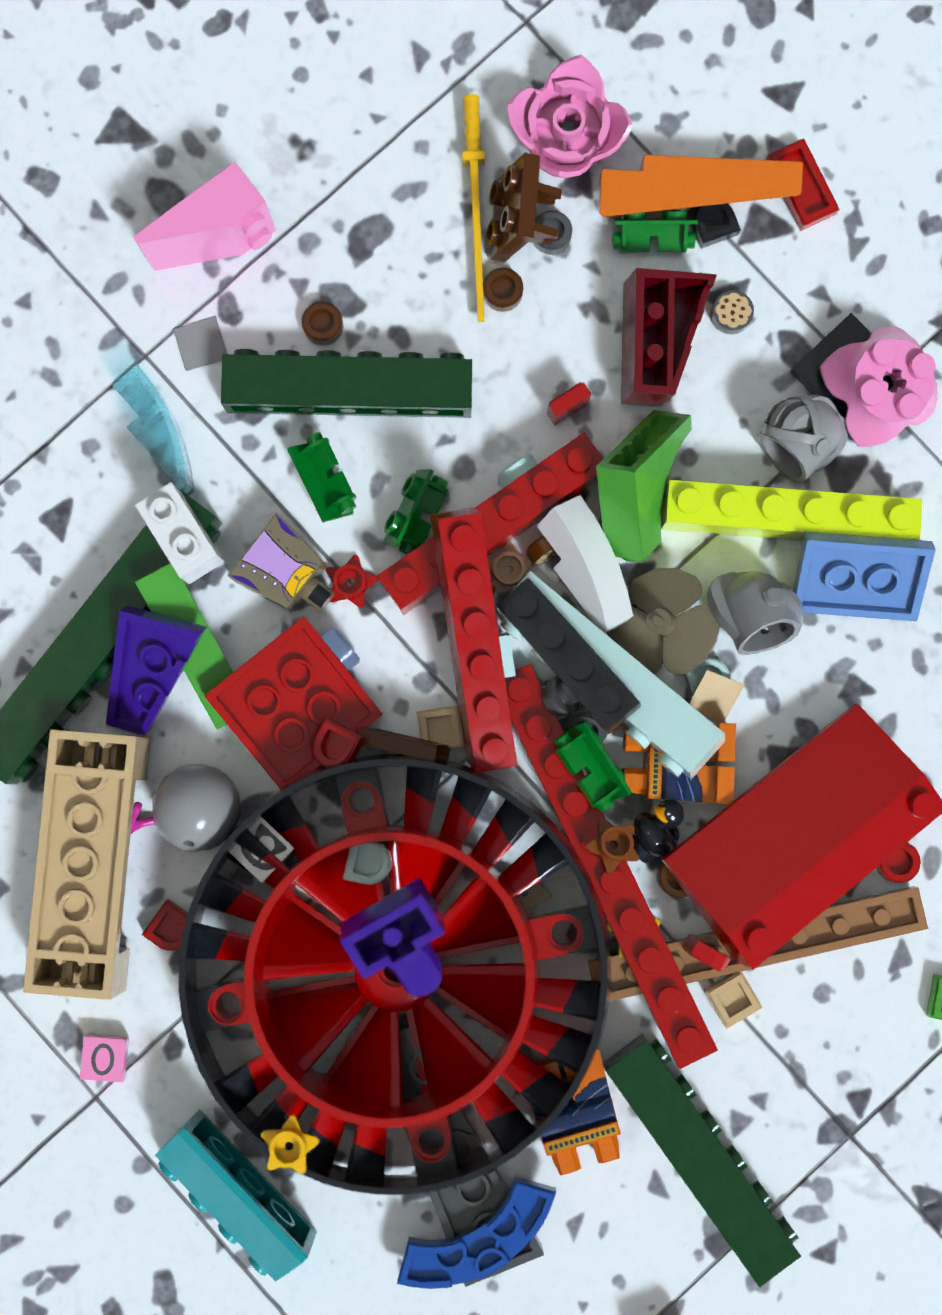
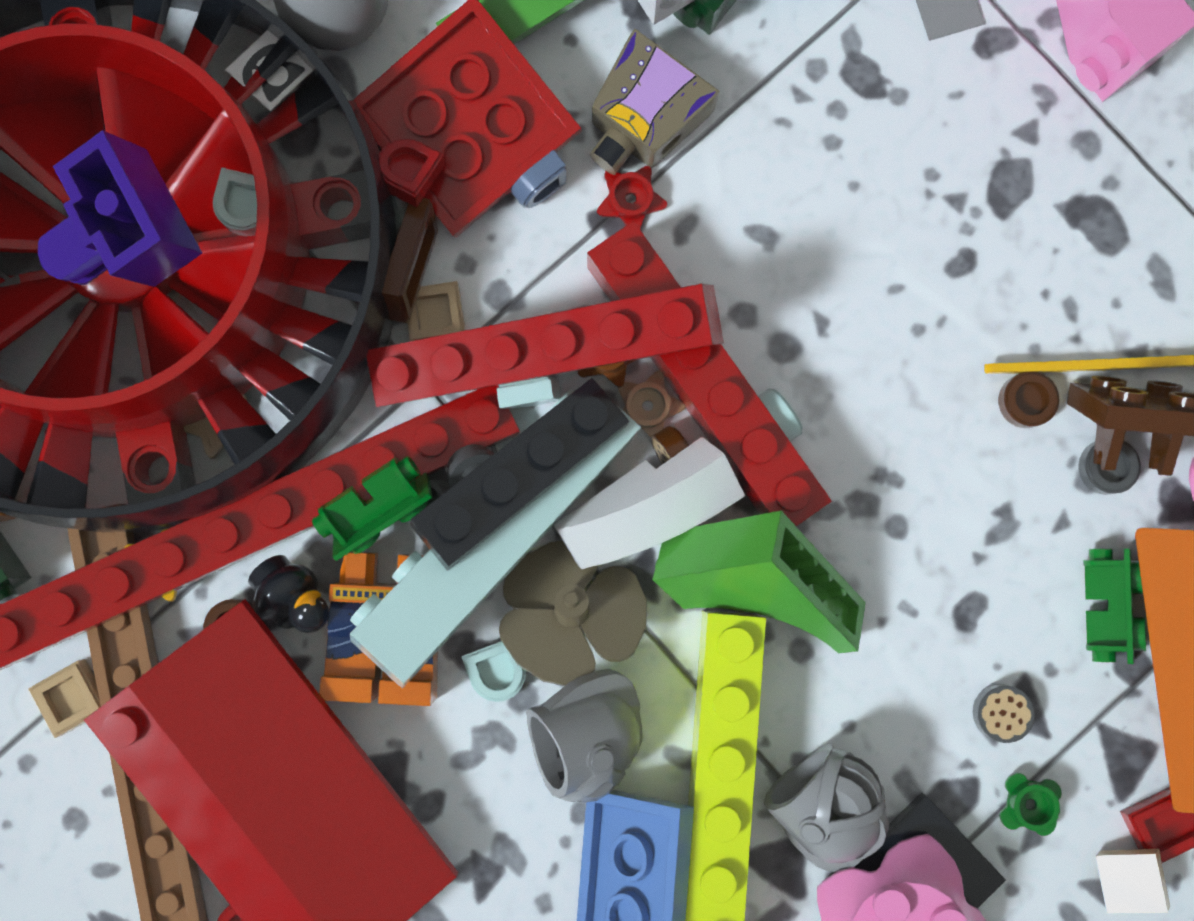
camera: 85 degrees right, 0 degrees up
(322, 323) = (978, 160): reddish brown tile -> none
(327, 489) = (766, 156): green hinge -> none
(347, 384) = (895, 190): dark green brick -> none
(419, 496) = (743, 286): green hinge -> none
(568, 403) = (873, 484): red tile -> none
(625, 844) = (260, 550): dark orange plate -> none
(658, 331) = (976, 607): dark red wedge -> none
(706, 953) = (120, 659): red tile -> none
(715, 224) = (1127, 691): black tile -> none
(716, 696) = (471, 679): tan sticker -> none
(799, 282) = (1047, 808): none -> green plate
(849, 223) = (1133, 881): none -> tile

